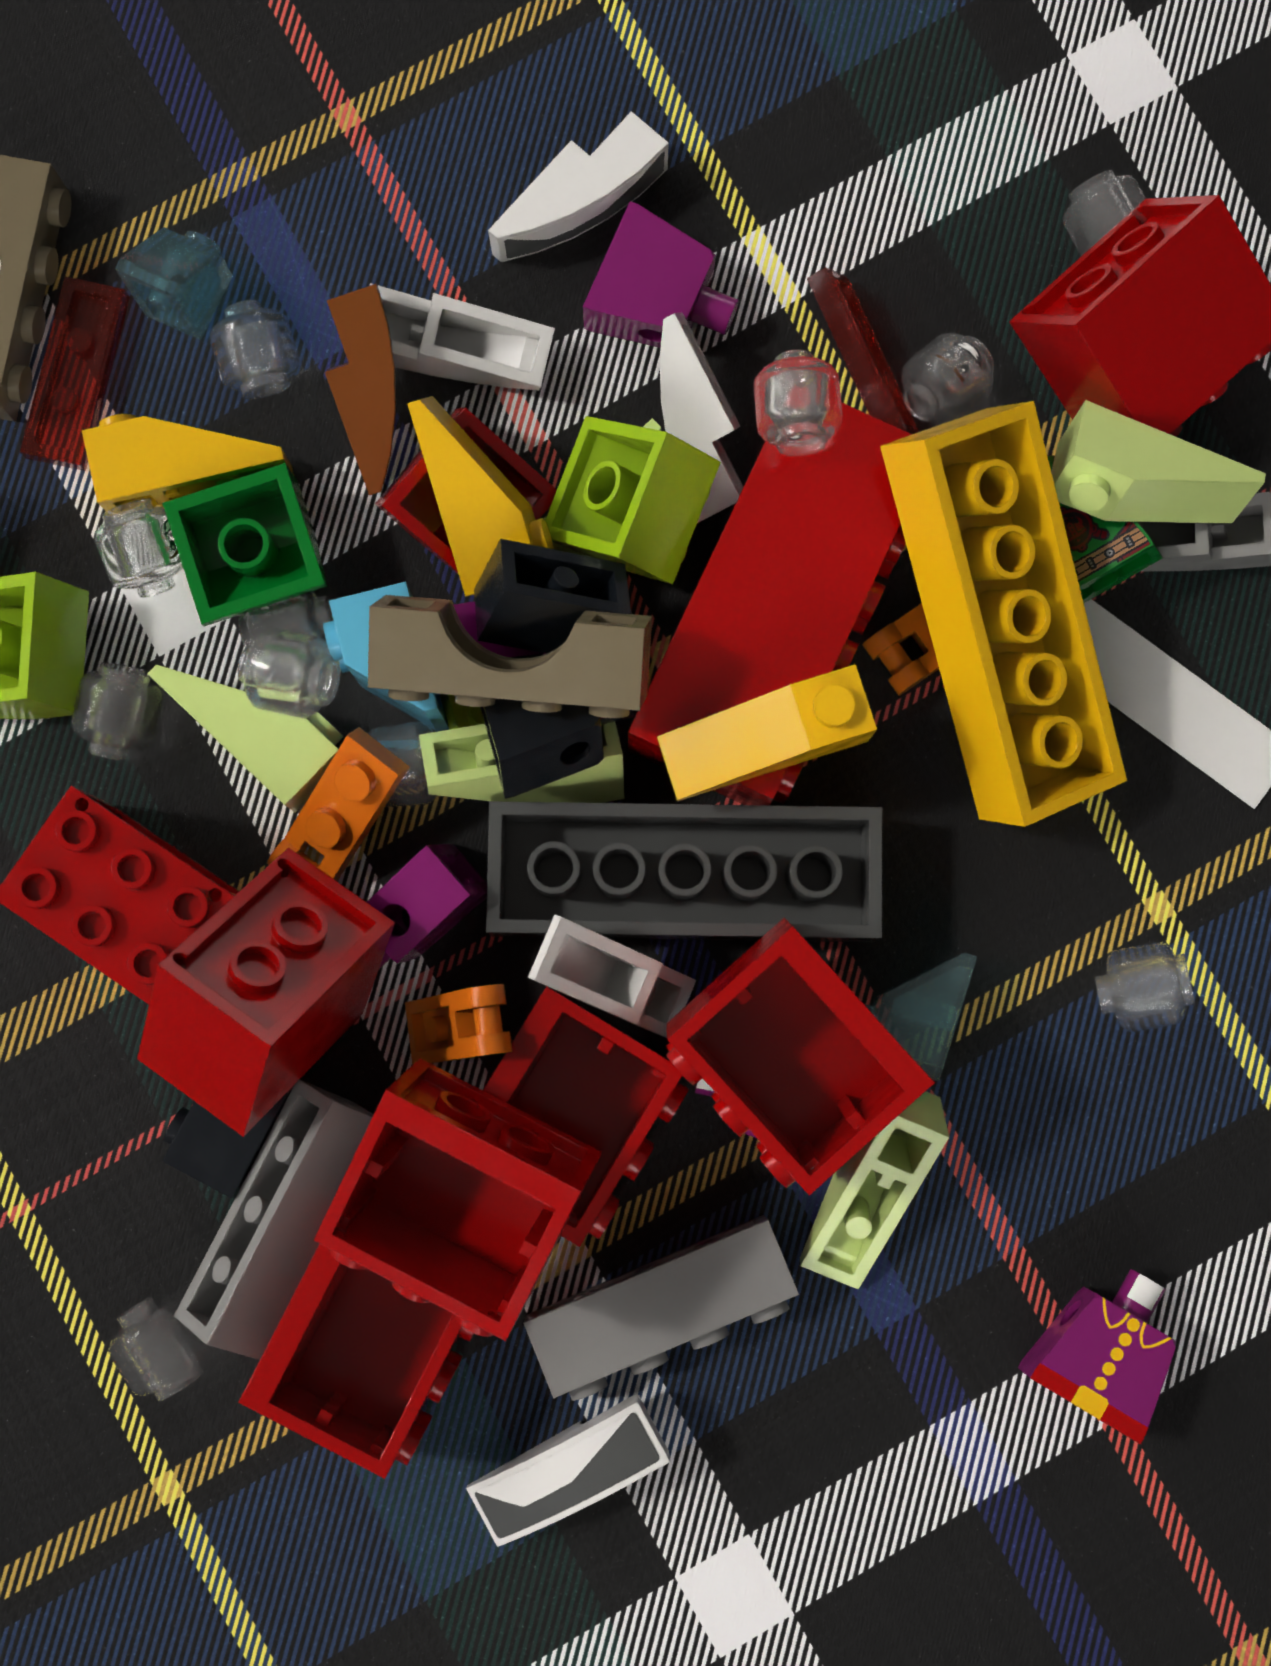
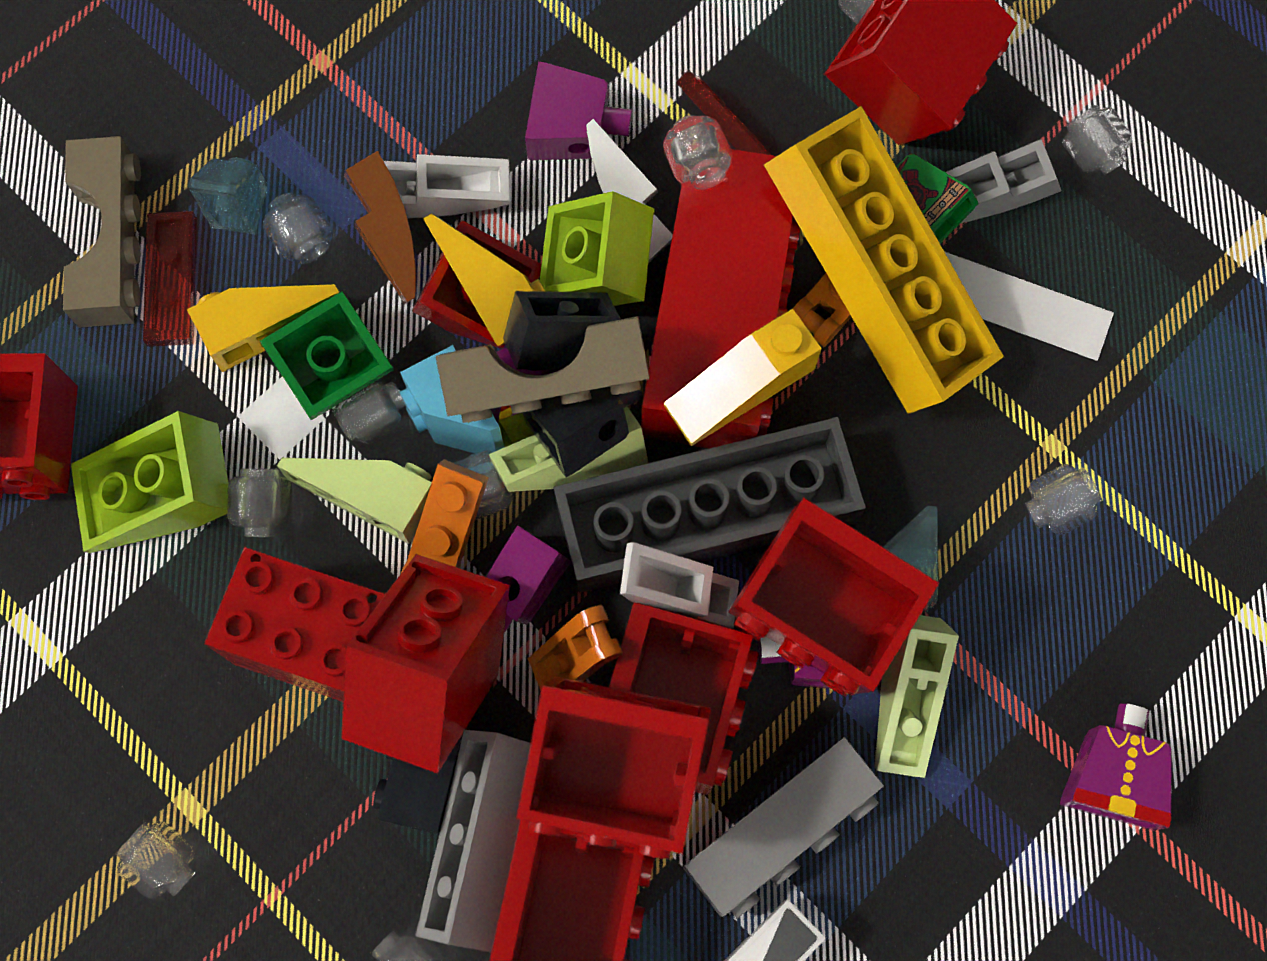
camera: 15 degrees left, 10 degrees down
(138, 548) = (249, 381): clear head -> none
(289, 673) = (382, 435): clear head -> none
(581, 190) = (501, 67): white slope -> none
(947, 378) = (790, 121): clear head -> none
(1144, 474) = (952, 144): yellowish green slope -> none

